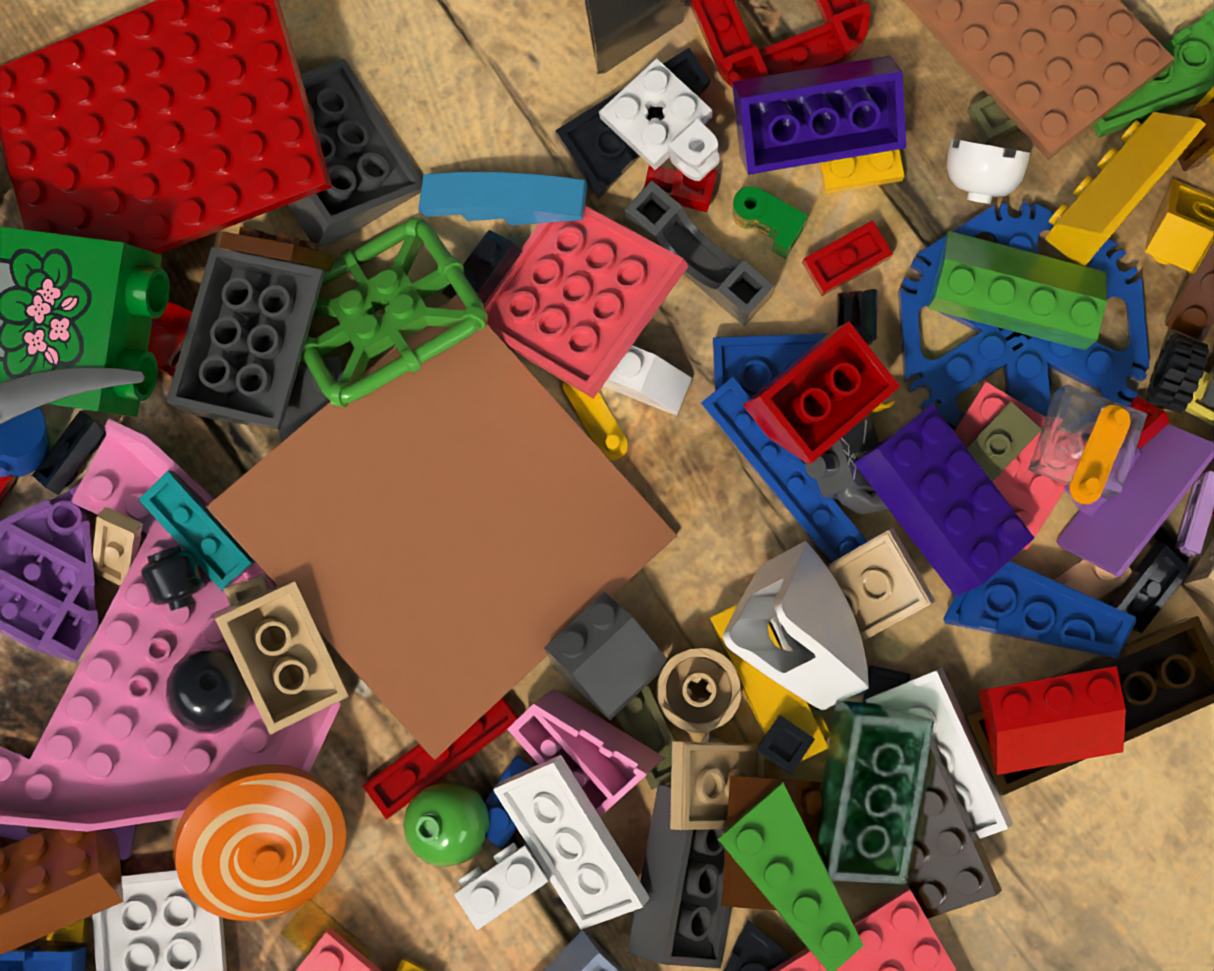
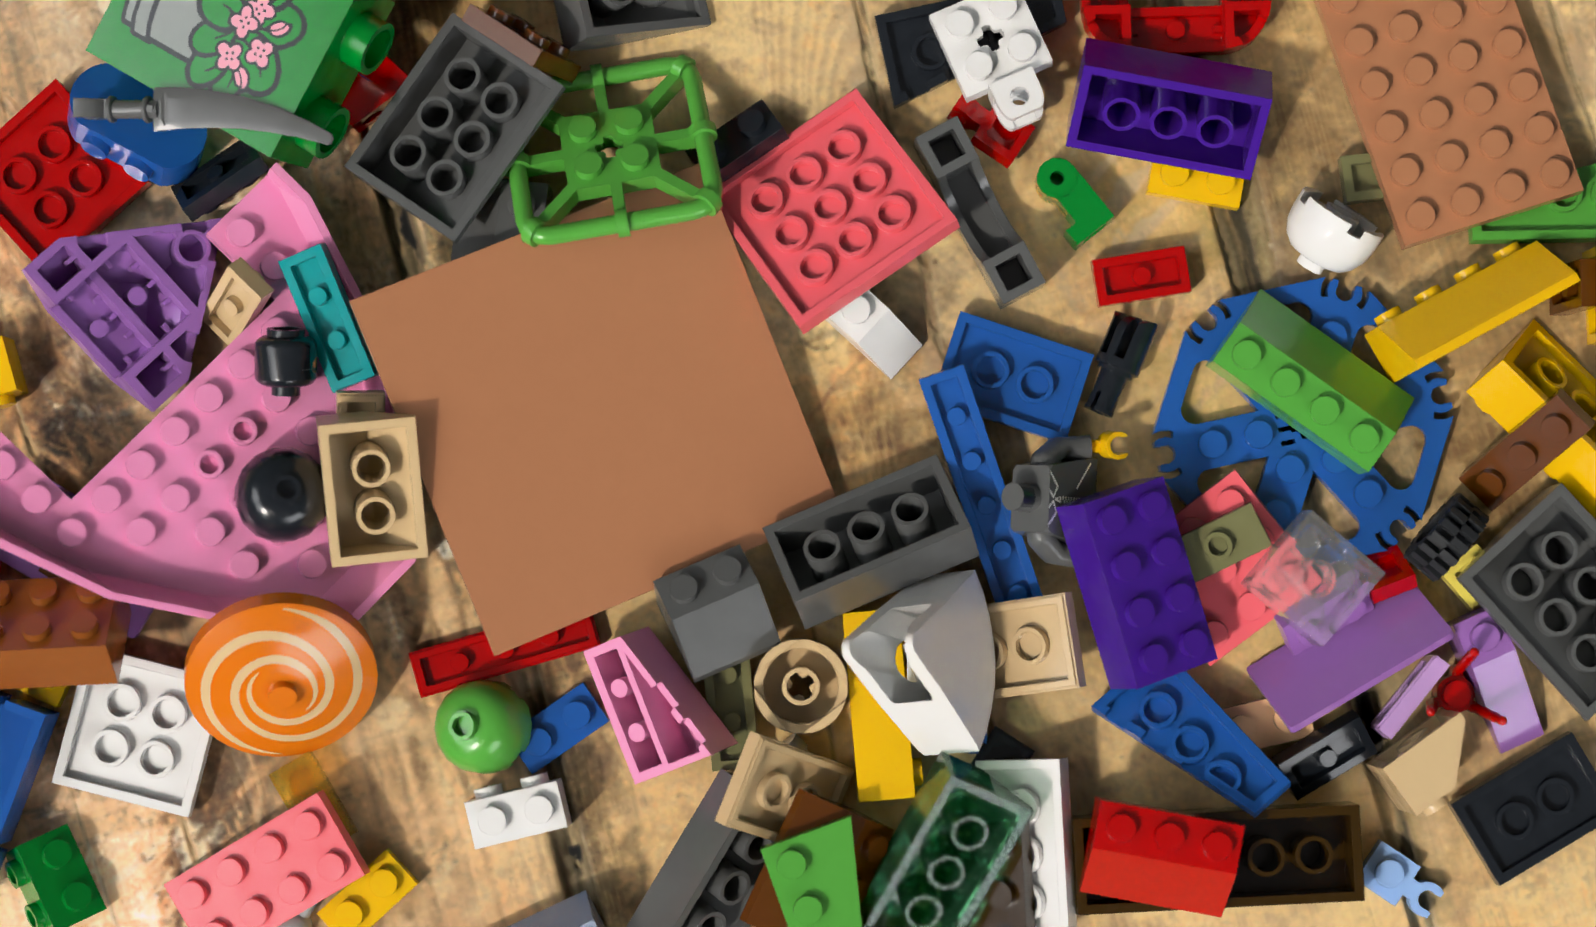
camera: 20 degrees right, 5 degrees up
(503, 195) = (790, 69): dark azure slope -> none
(571, 843) = (606, 795): white plate -> none
(598, 422) = (803, 360): yellow piece -> none
(712, 549) = (871, 541): none -> dark grey brick
(785, 744) = (869, 777): black plate -> none
(822, 394) = (1050, 421): red slope -> none
(1099, 454) = (1316, 597): light orange piece -> none

